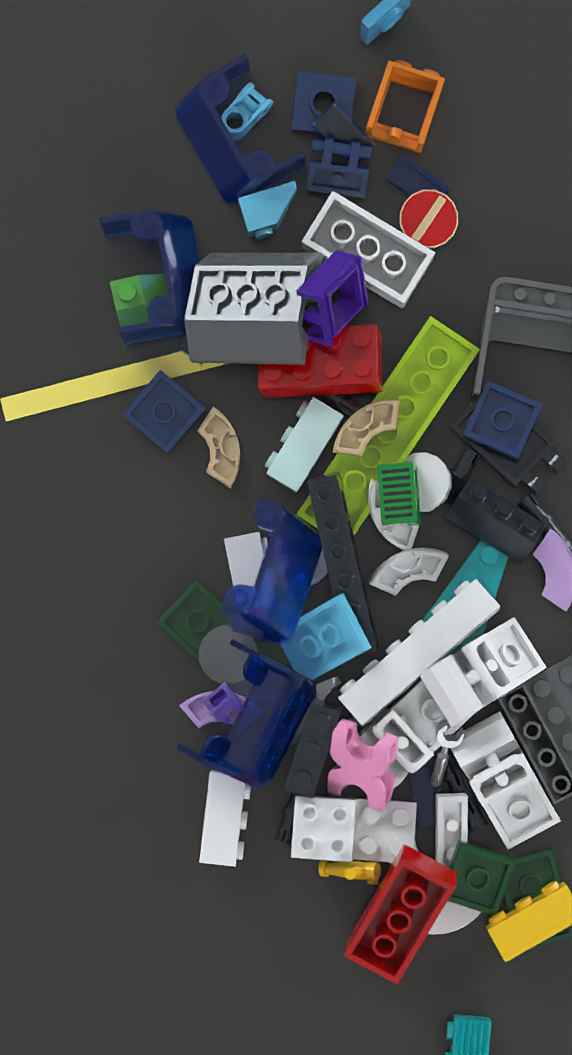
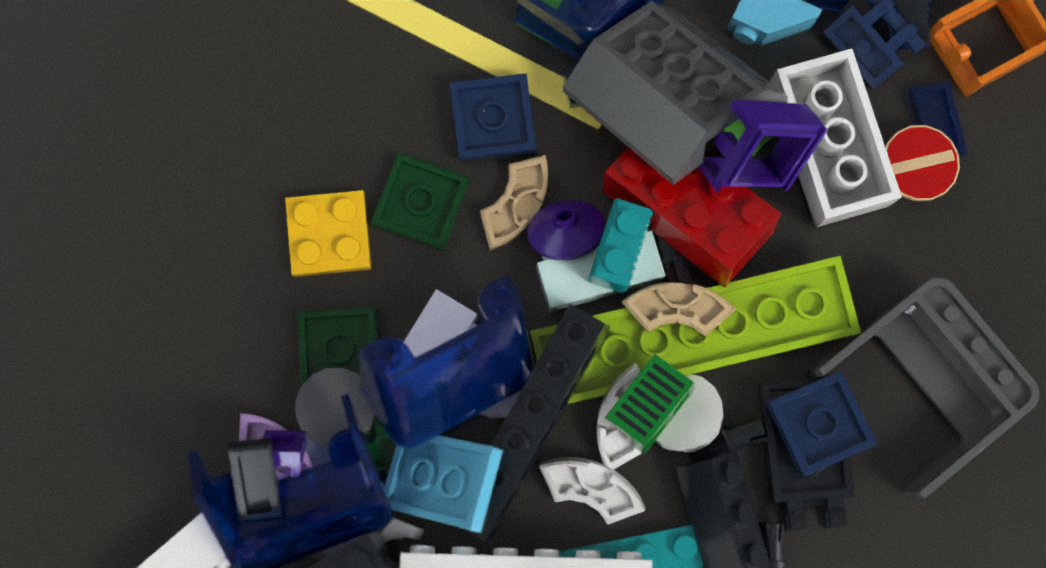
camera: 30 degrees right, 5 degrees down
(131, 562) = (328, 233): none -> yellow plate
(166, 497) = (420, 201): none -> dark green tile
(224, 730) = (255, 479): none -> black tile
(264, 438) = (566, 230): none -> dark purple dish
(304, 423) = (620, 246): none -> teal brick

